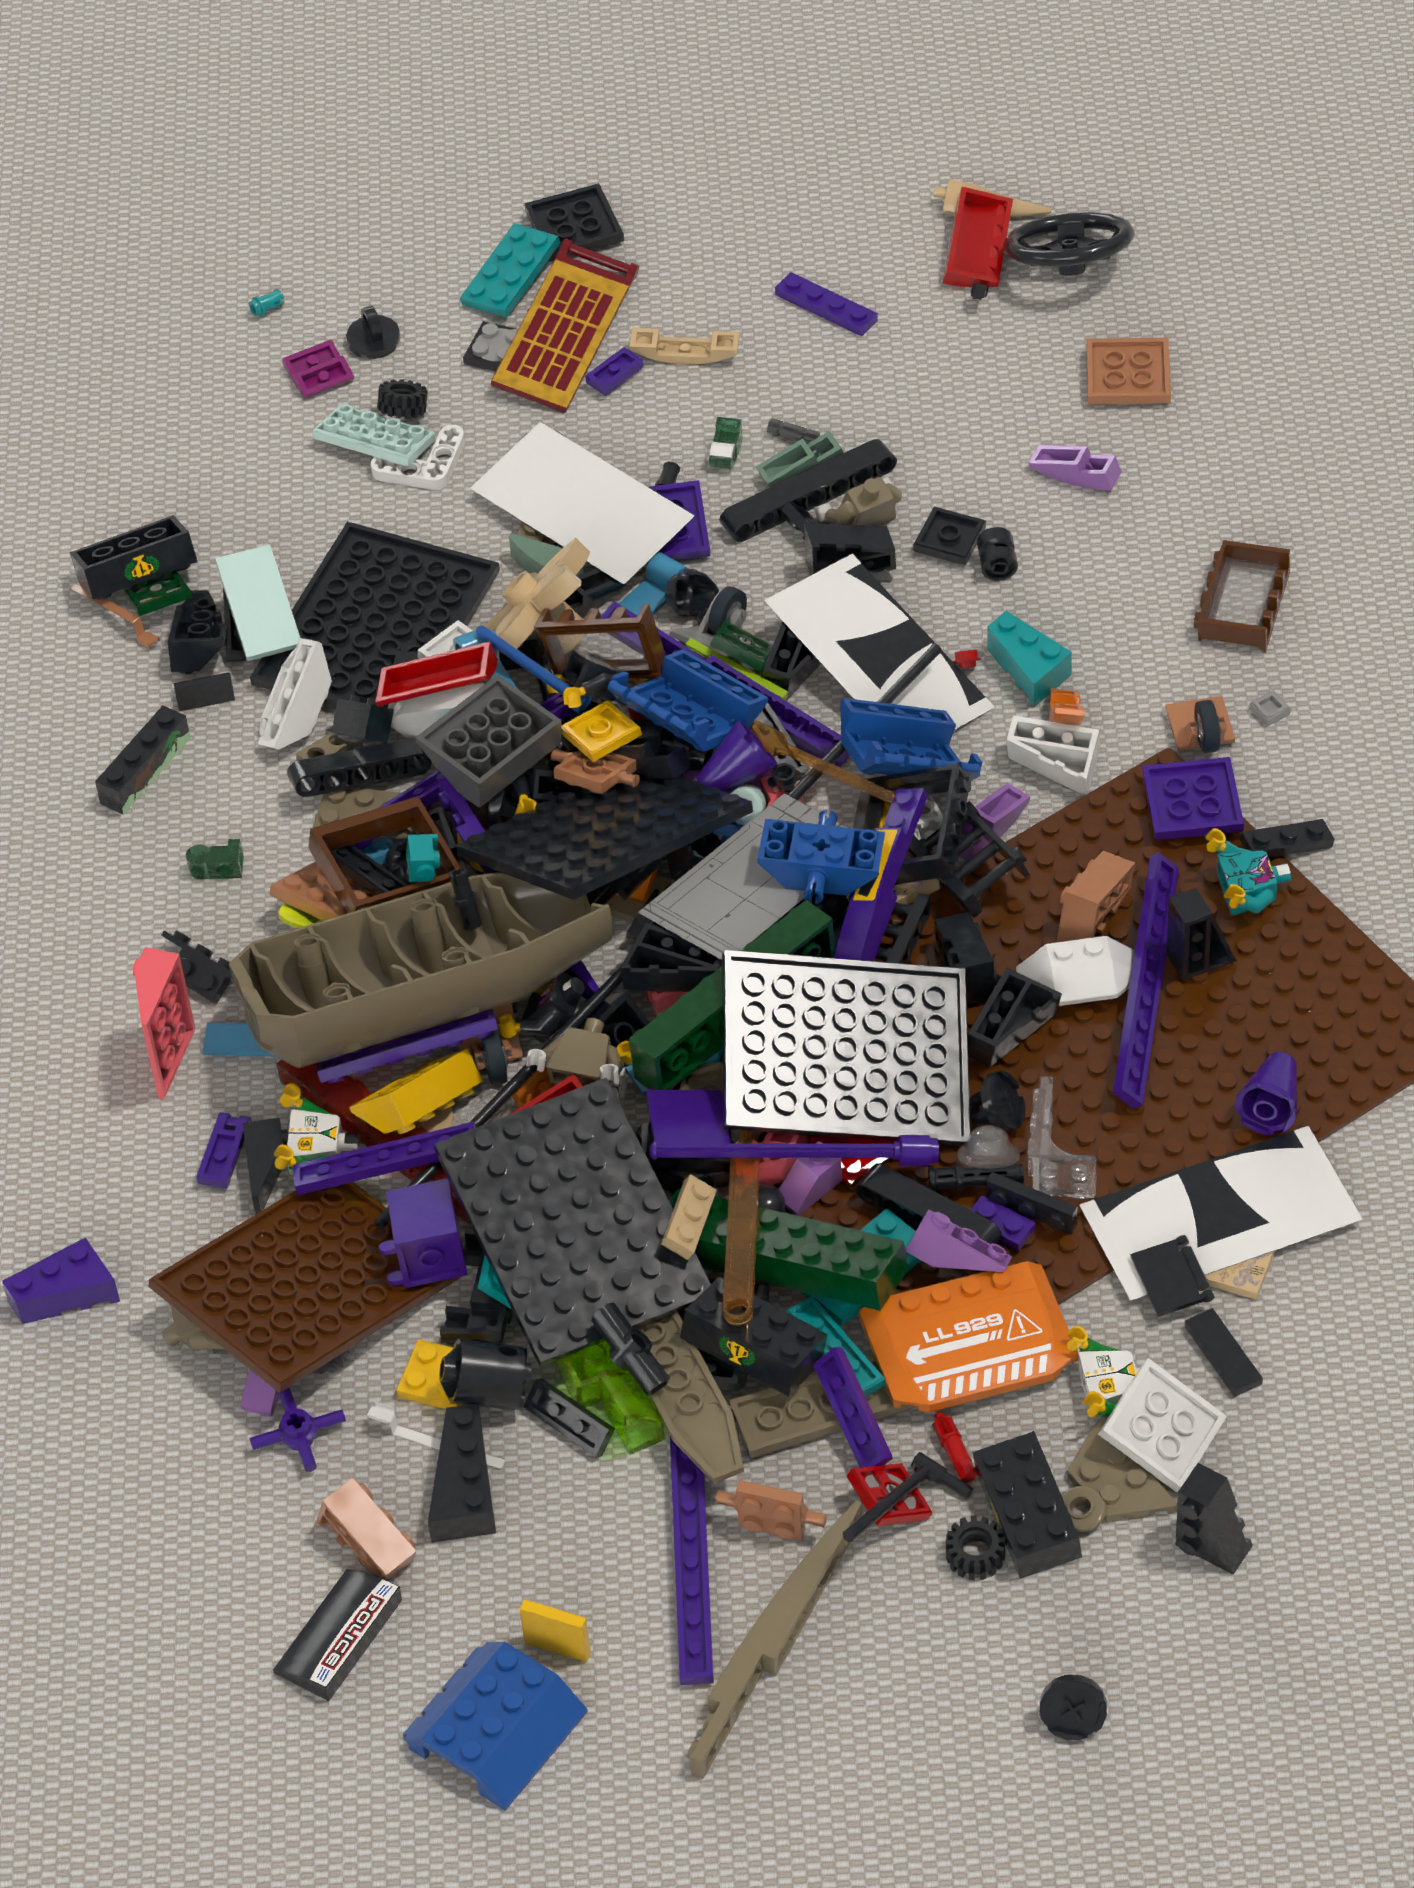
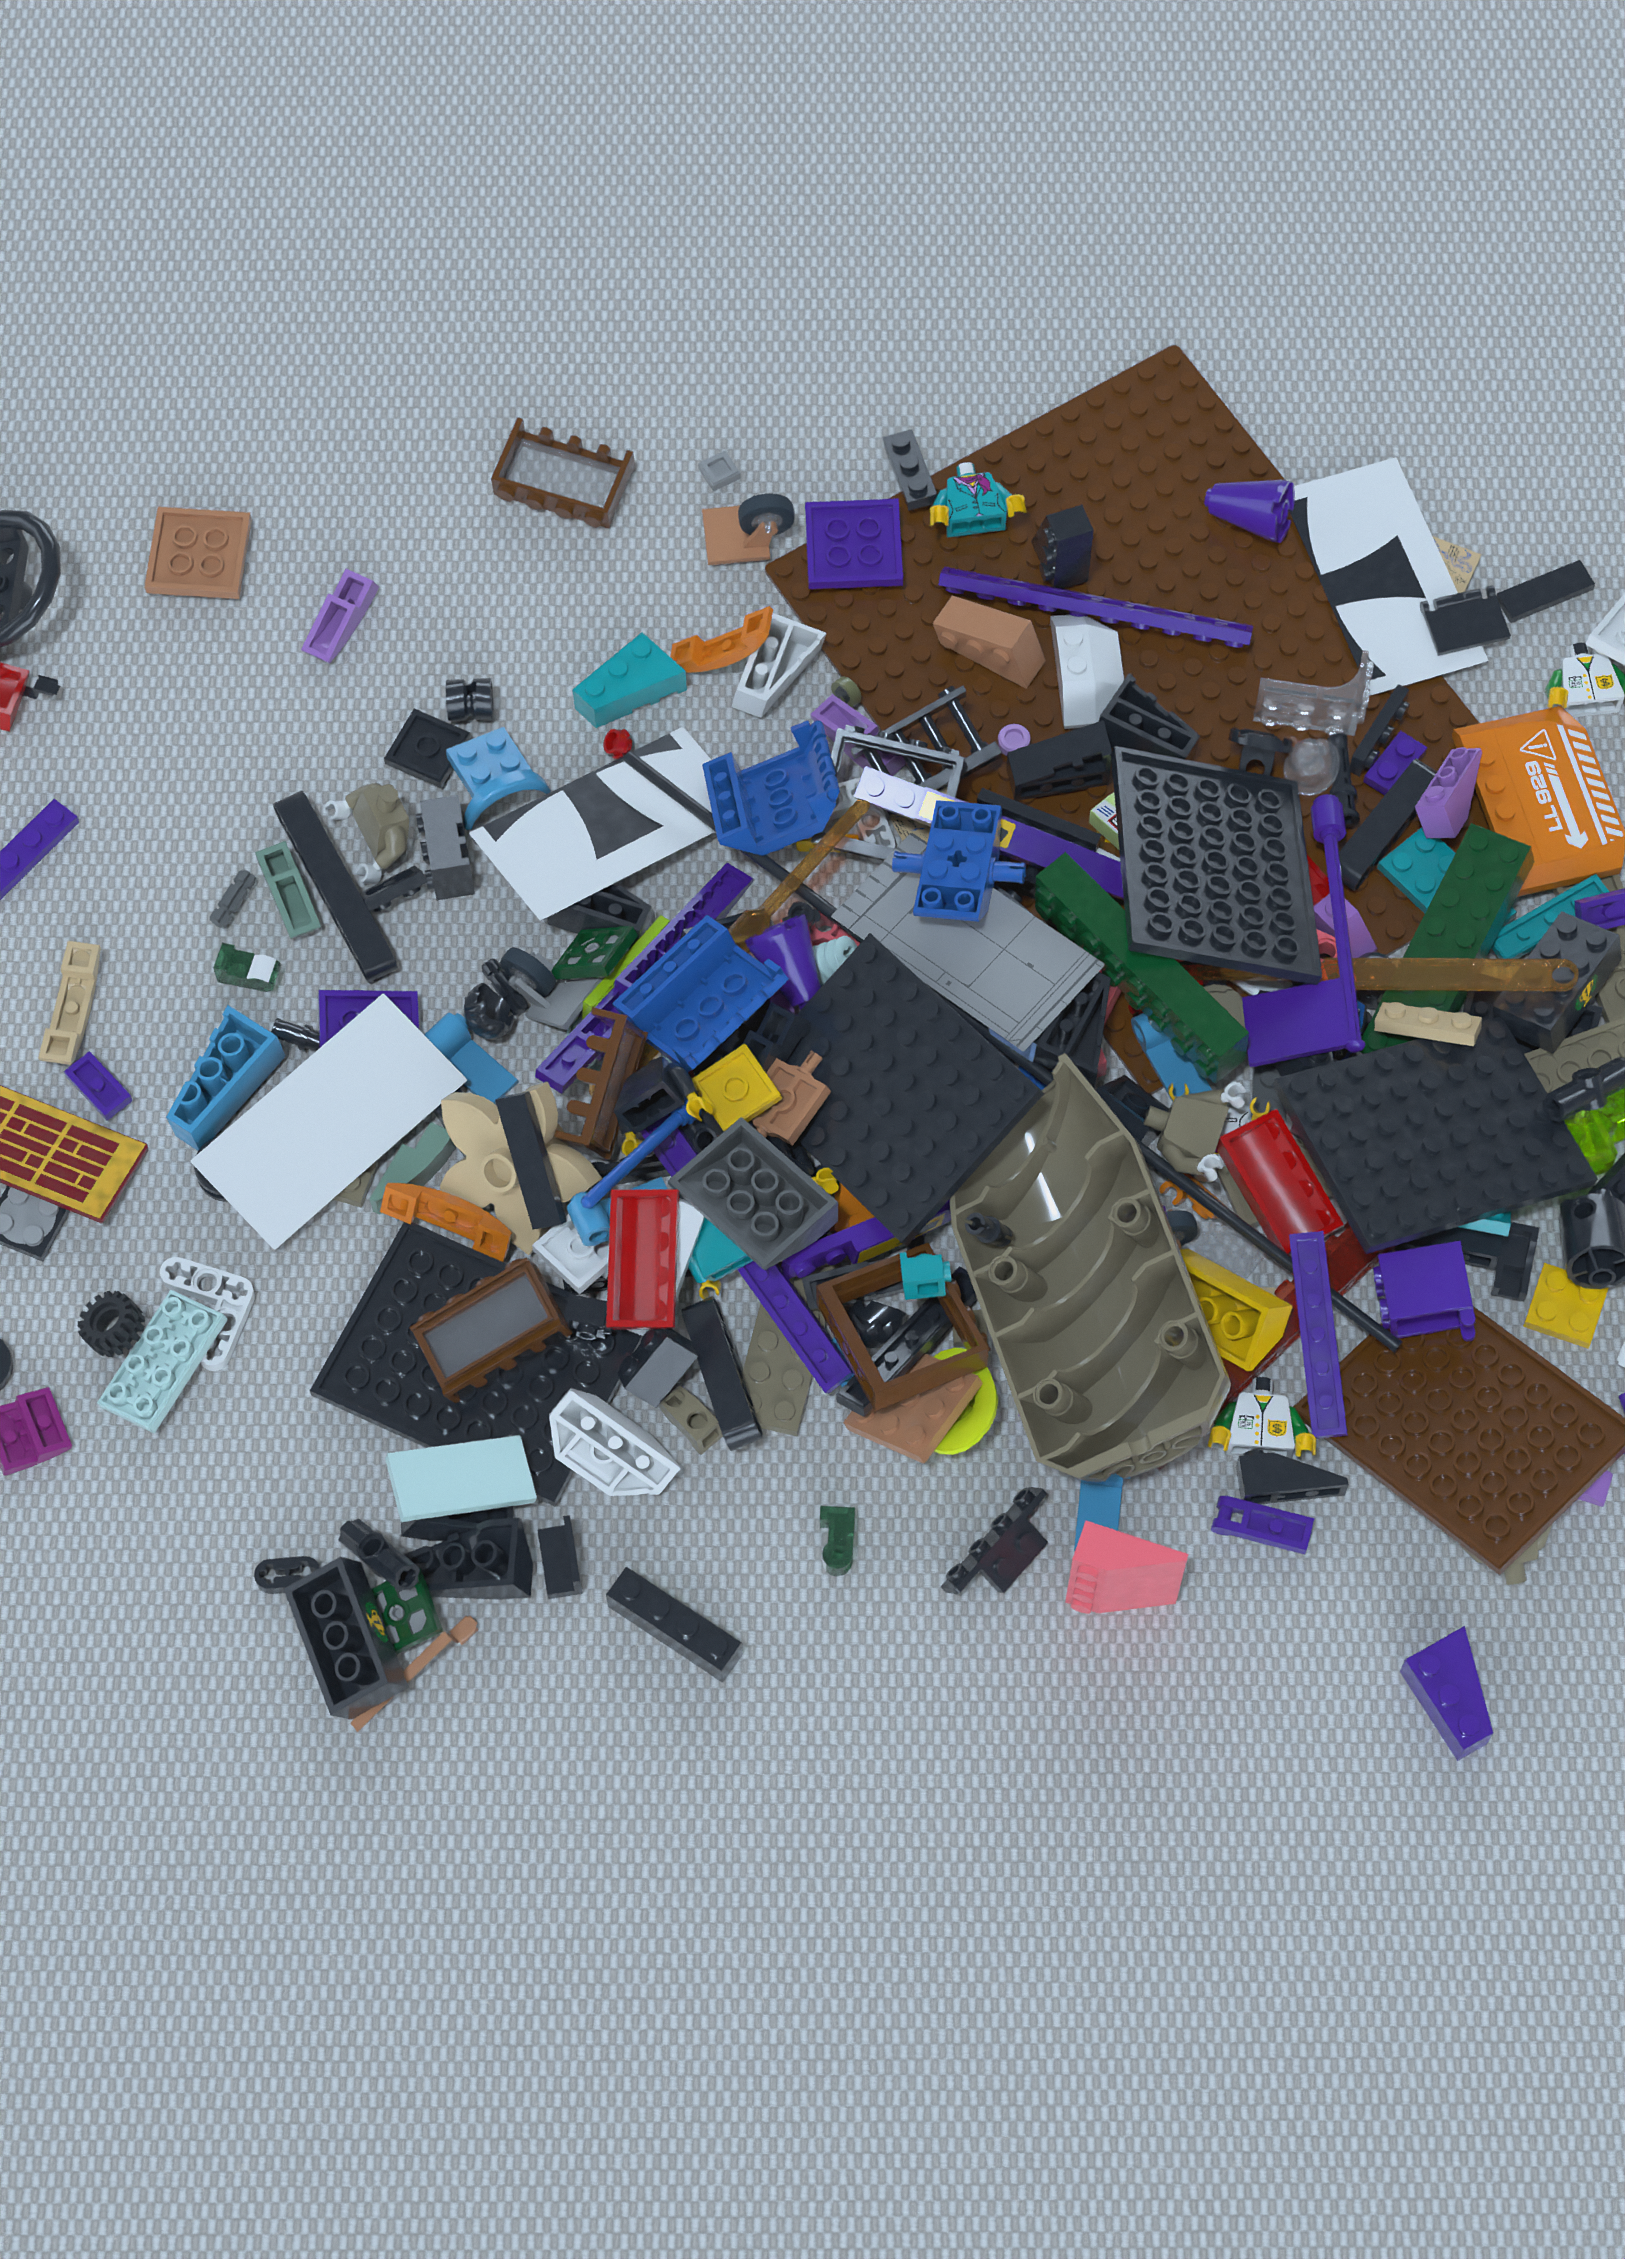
camera: 90 degrees left, 15 degrees up
(195, 569) = (379, 1555): none -> black piece
(200, 530) = (282, 1566): none -> black beam
(388, 607) = (489, 1327): none -> window
(507, 561) = (448, 1212): none -> orange slope
(521, 592) = (531, 1160): none -> black tile
(619, 438) = (224, 1078): none -> dark azure wedge
(923, 572) = (490, 770): none -> dark azure piece
(996, 931) = (1013, 737): none -> lavender tile
(1036, 810) = (846, 691): none -> olive tile

